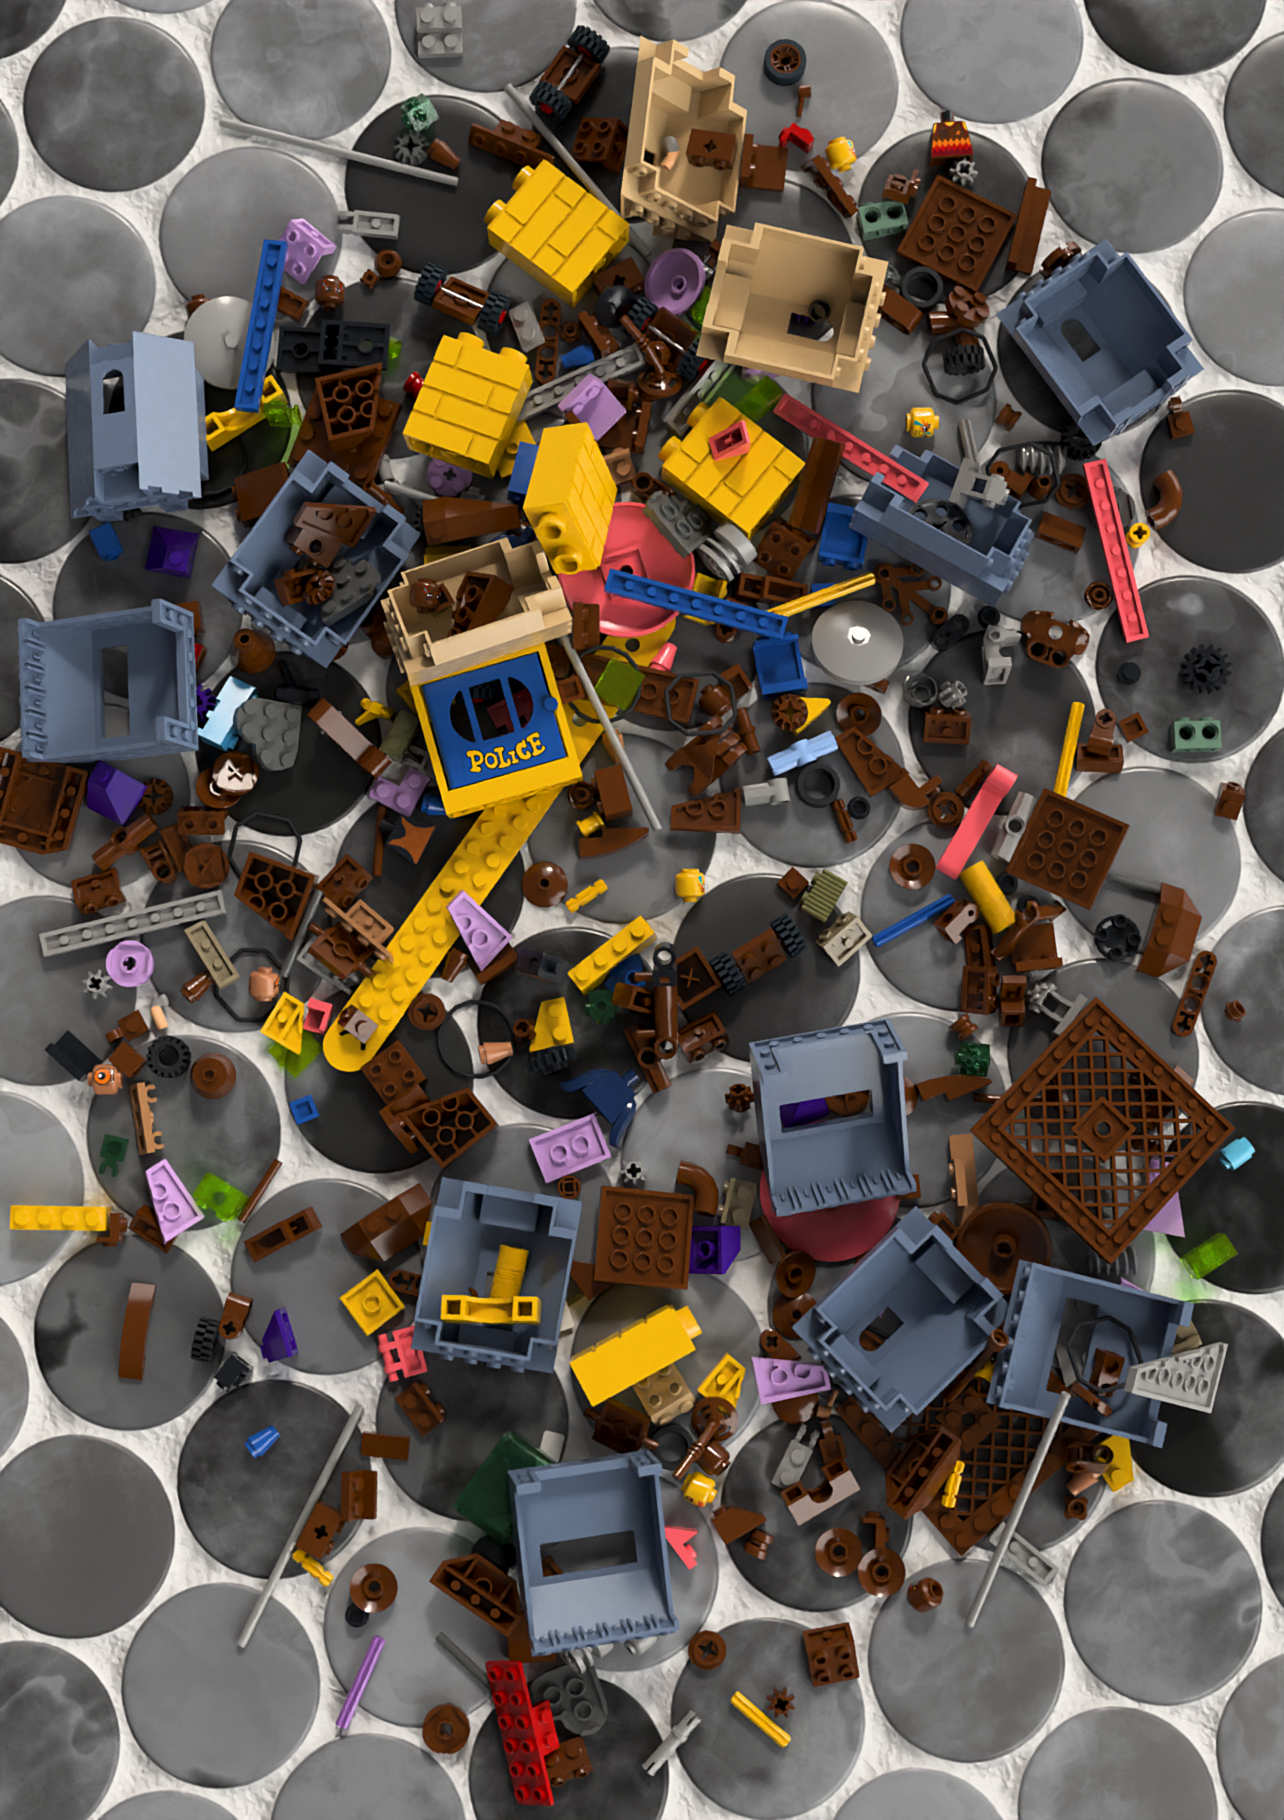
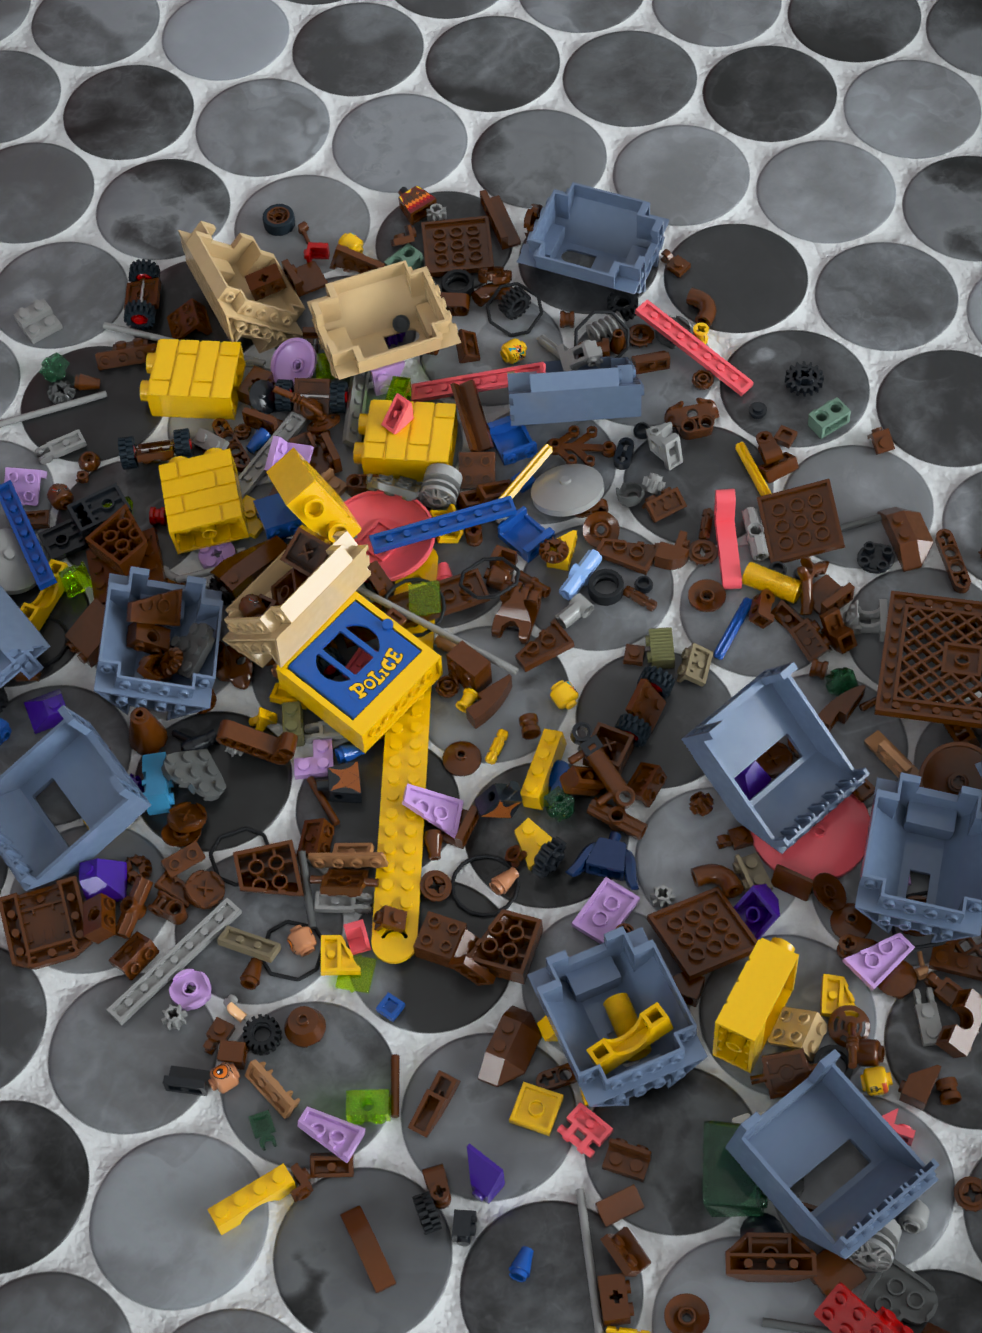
camera: 25 degrees left, 25 degrees down
(85, 832) = (99, 918): none -> reddish brown brick
(517, 569) = (306, 550): none -> reddish brown brick
(633, 894) = (530, 729): none -> reddish brown wheel
(879, 379) = (468, 348): none -> reddish brown slope

